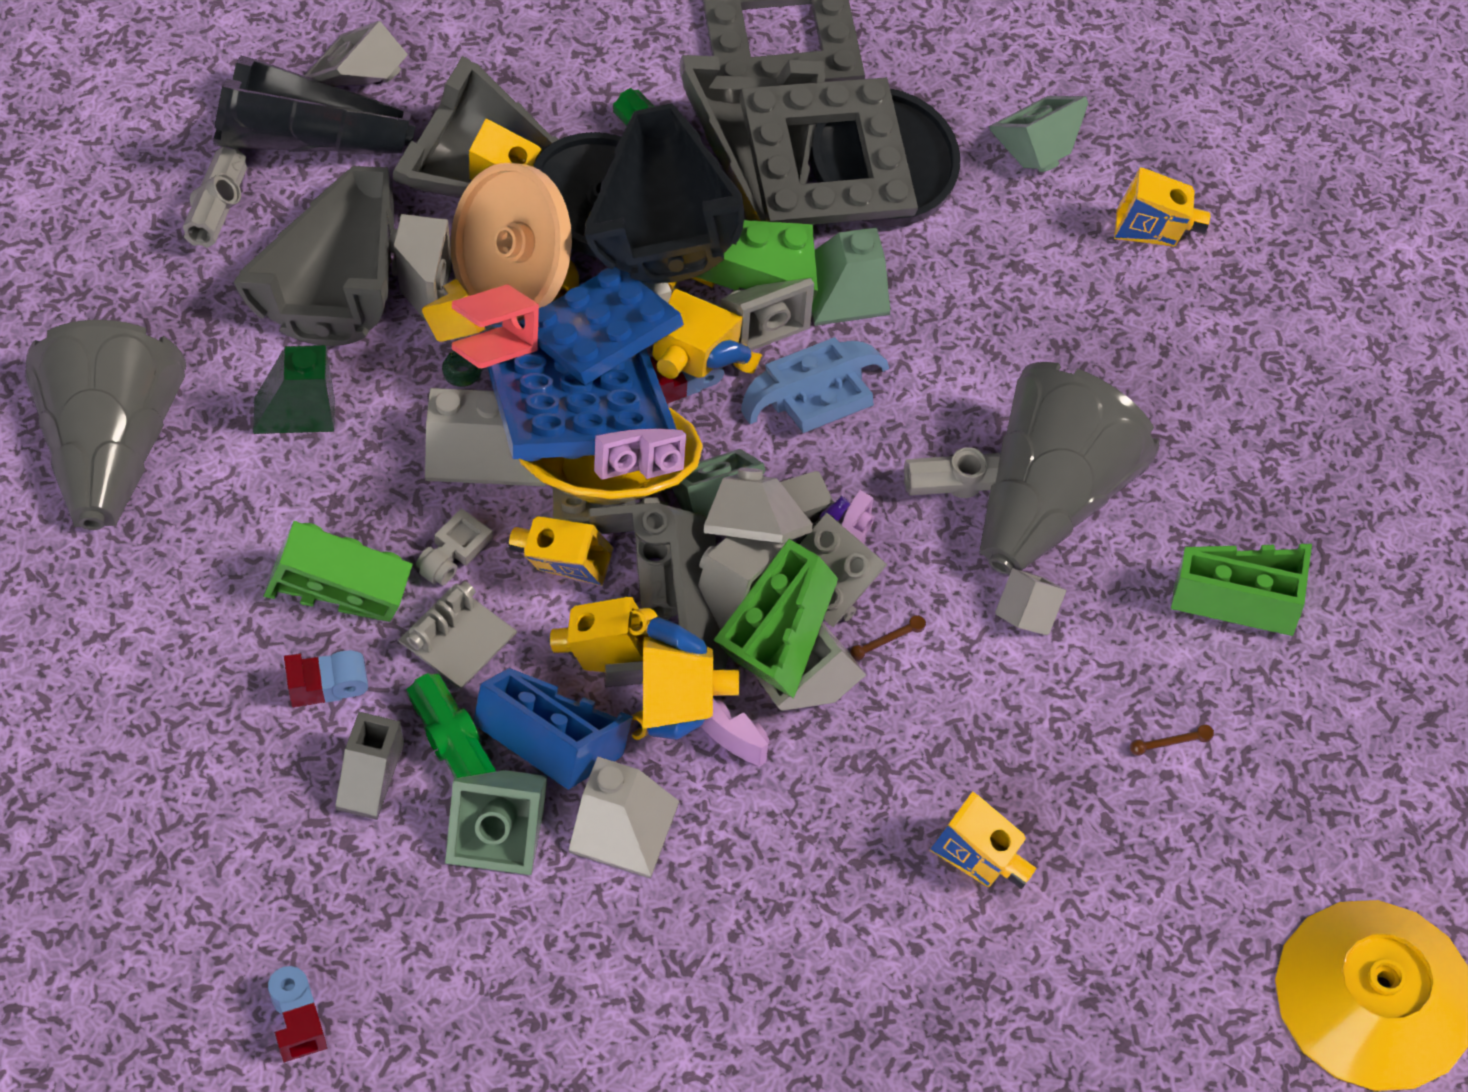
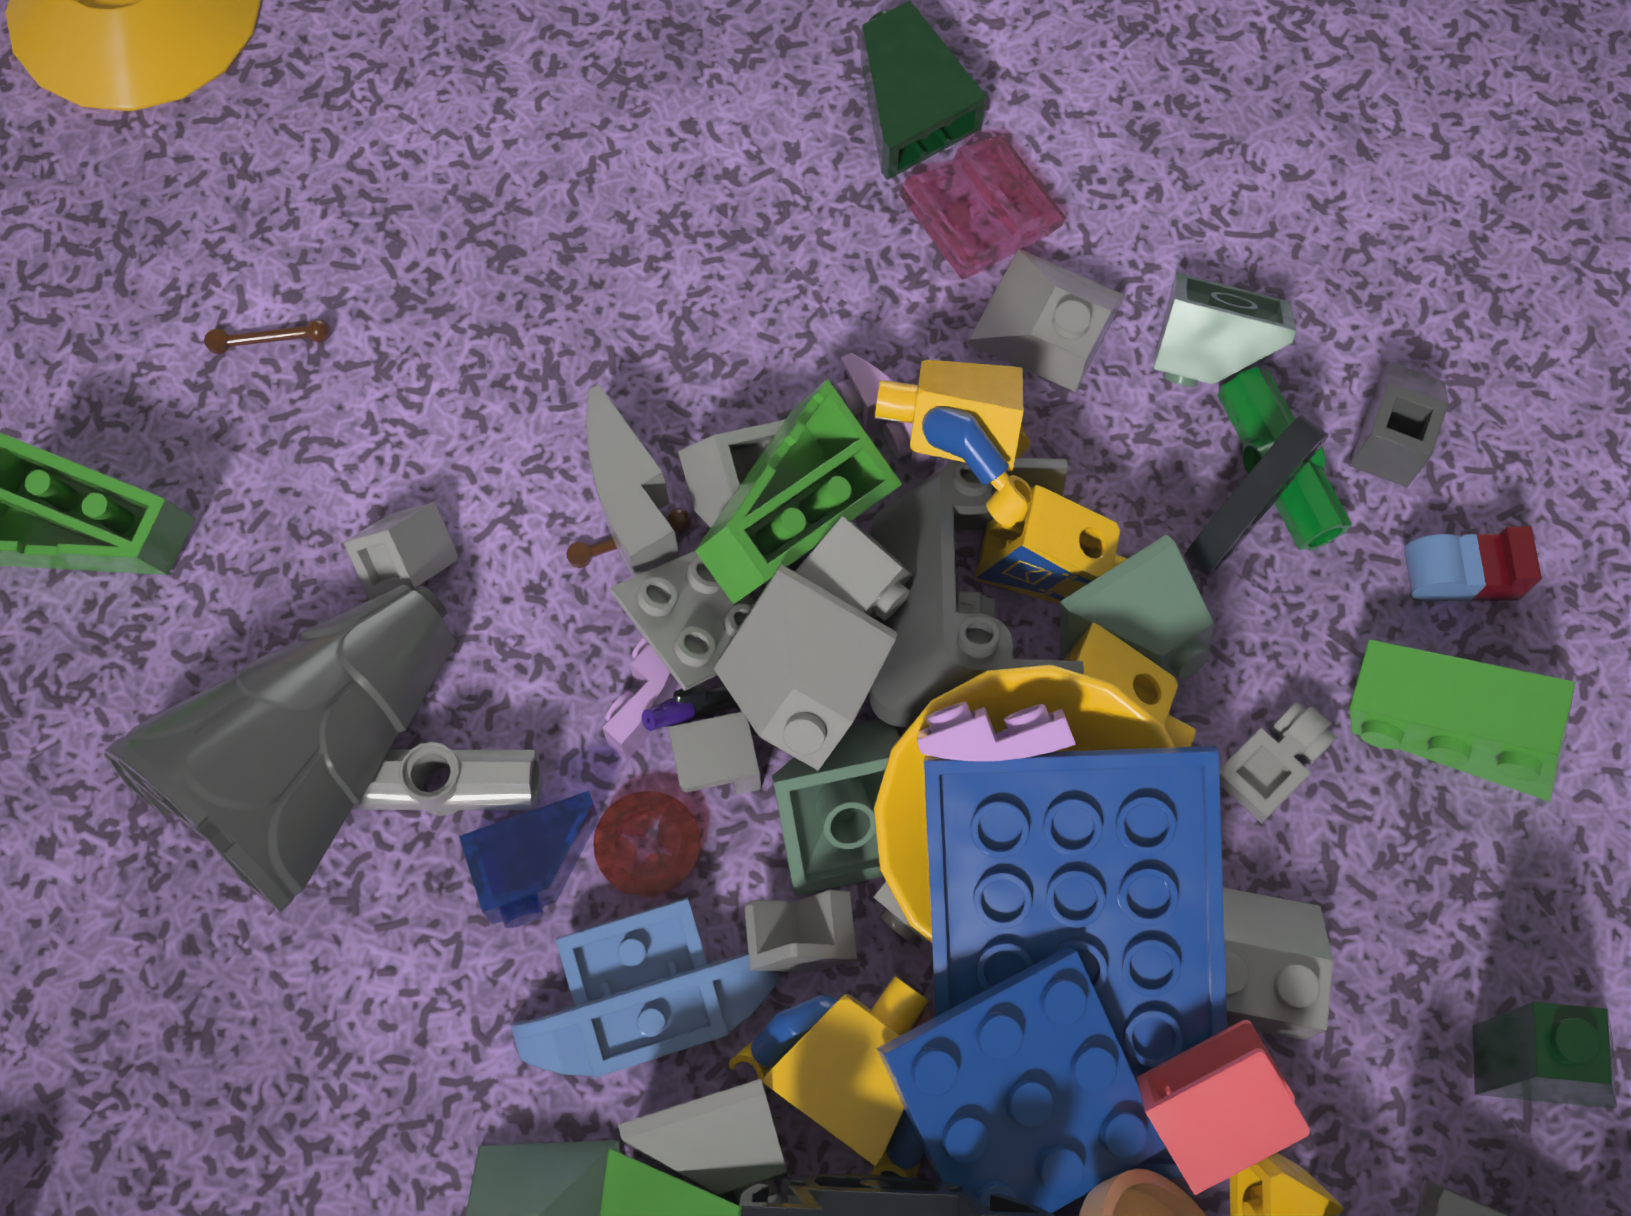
camera: 170 degrees left, 10 degrees up
(294, 1001) = (1479, 129): leg -> none
(458, 635) = (1276, 617): light grey hinge -> none
(462, 690) = (1256, 495): none -> black beam
(547, 597) = (1148, 606): none -> sand green slope
(548, 728) = (1146, 424): blue wedge -> none
(681, 905) = (982, 206): none -> clear pink slope
(734, 414) = (801, 934): none -> light grey panel
(748, 984) = (915, 90): none -> dark green slope
(822, 447) = (635, 816): none -> clear red gear
(895, 650) = (628, 488): none -> light grey slope
(902, 434) = (528, 858): none -> clear blue slope
(983, 844) = (579, 201): yellow torso -> none

